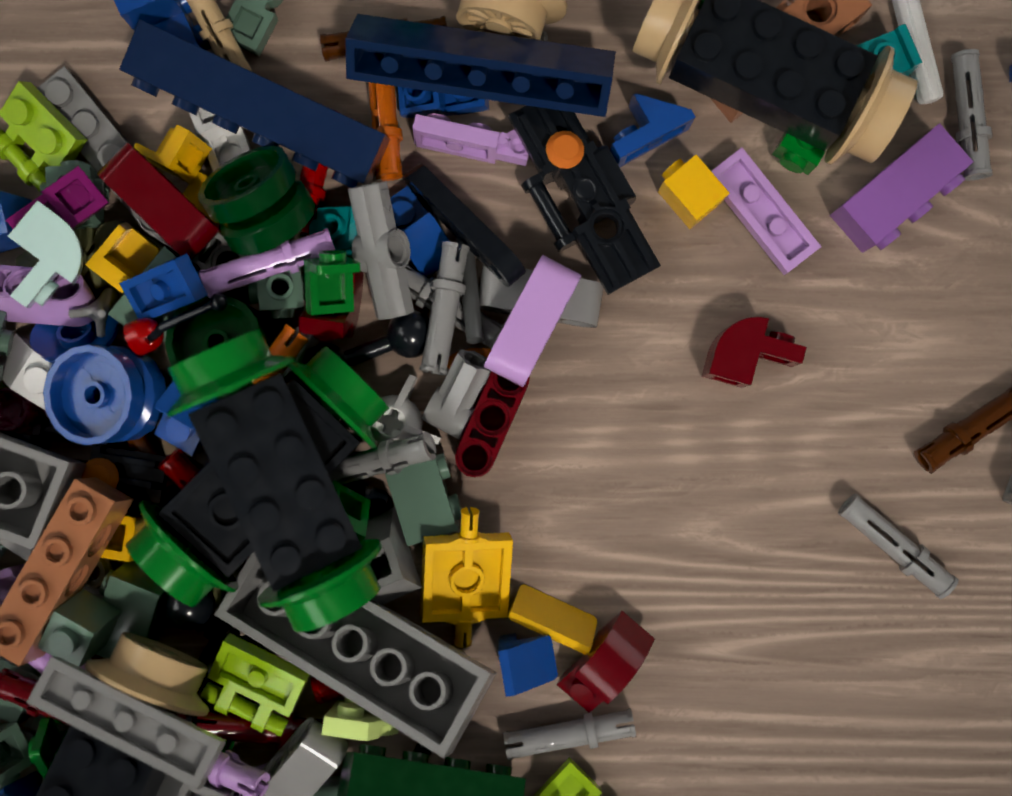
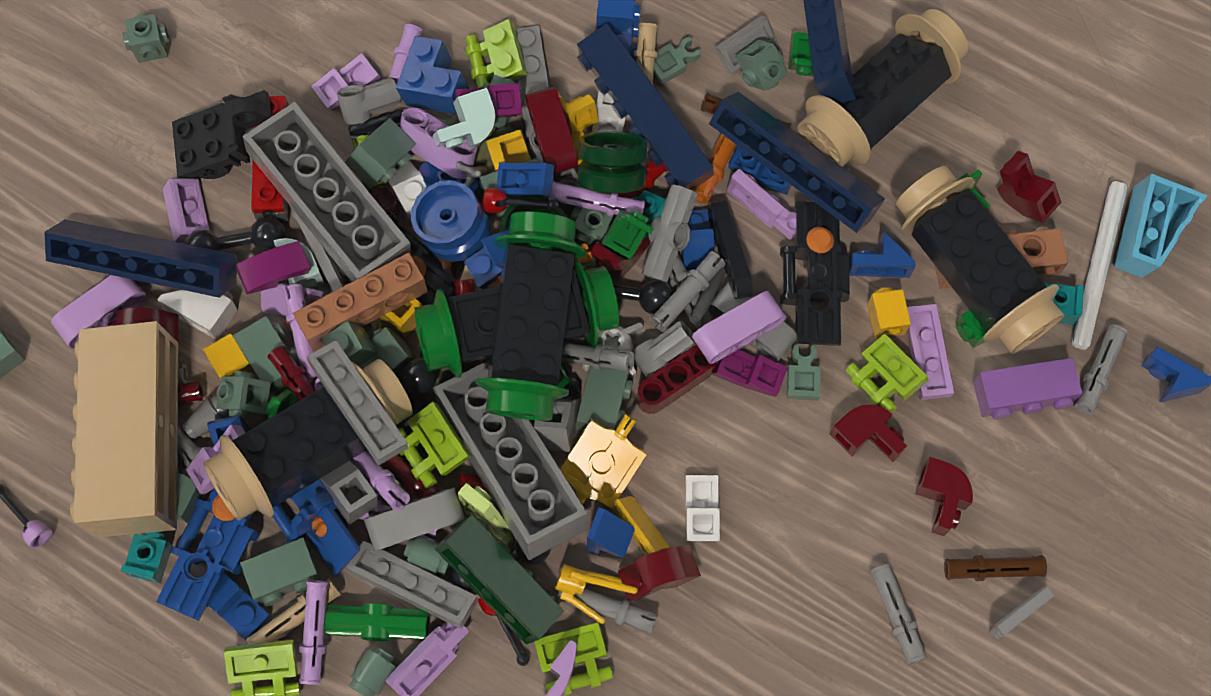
camera: 25 degrees right, 15 degrees down
(516, 737) = (573, 580): none -> yellow plant
(576, 356) = (752, 372): none -> magenta slope
(609, 553) = (702, 508): none -> white slope
(638, 331) = (803, 379): none -> sand green plate
(735, 256) = (895, 368): none -> lime plate
(881, 366) = (950, 487): none -> dark red brick

